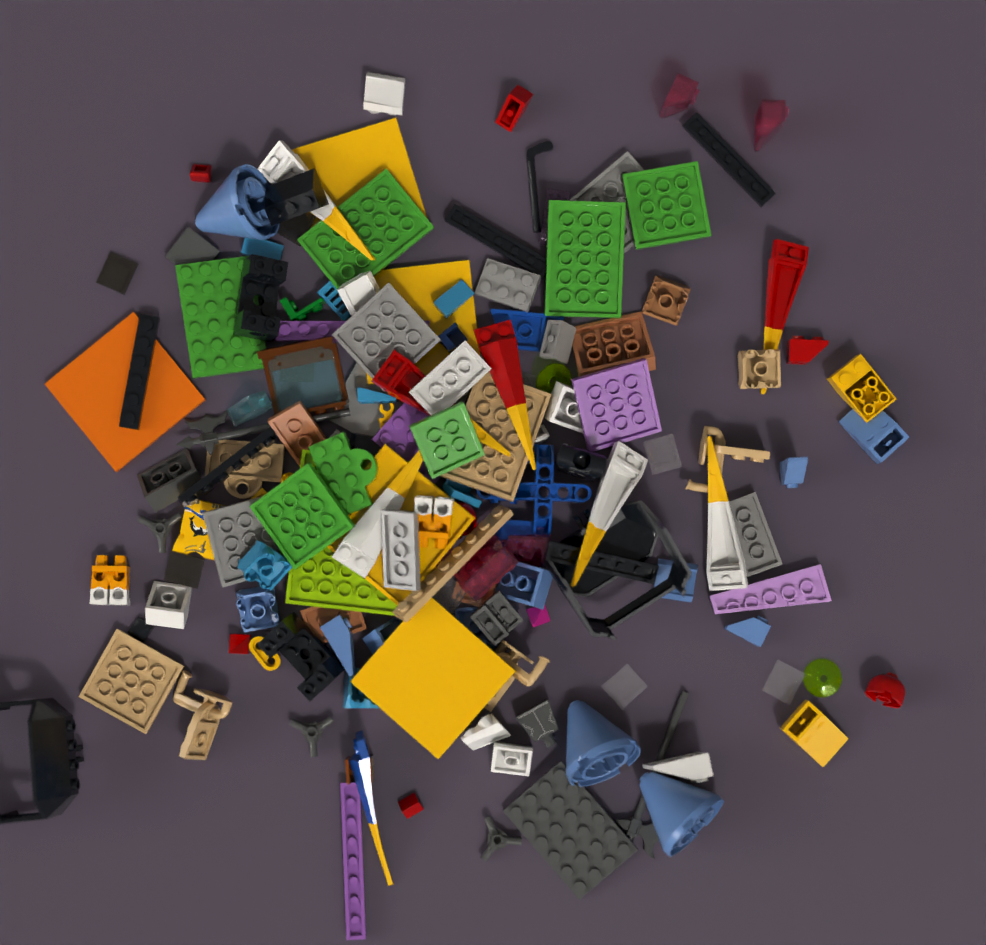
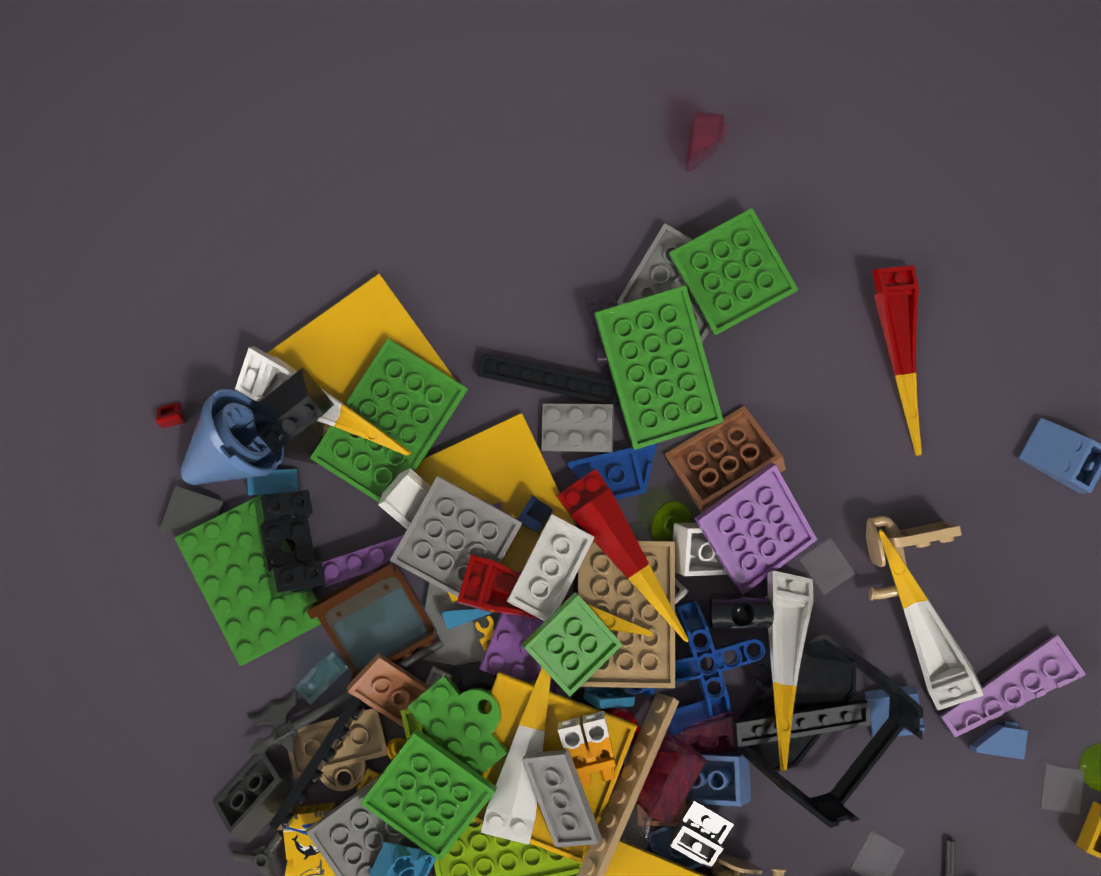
camera: 25 degrees left, 0 degrees up
(95, 389) = (165, 708): orange tile -> none
(117, 273) = (109, 568): clear smoke piece -> none
(139, 372) = (174, 679): black plate -> none
(290, 308) = (329, 540): green bracket -> none
(323, 291) = (361, 511): dark azure slope -> none
(384, 94) = (355, 250): white slope -> none
(453, 299) = (519, 466): dark azure slope -> none
(514, 108) = (514, 216): red slope -> none
(531, 153) = (552, 265): black piece -> none
(538, 616) = (748, 812): dark pink slope -> none
(557, 341) = (660, 475): light grey panel -> none
(666, 300) = (769, 382): medium nougat slope -> none
(728, 159) = (785, 194): black plate -> none
(754, 535) = (968, 626): light grey plate -> none
(759, 369) = (906, 428): tan slope -> none
(768, 120) = (819, 132): clear pink slope -> none
(793, 471) = (989, 536): medium blue slope -> none
(802, 351) = (950, 389): red slope -> none
(861, 388) = (1033, 410): yellow slope -> none

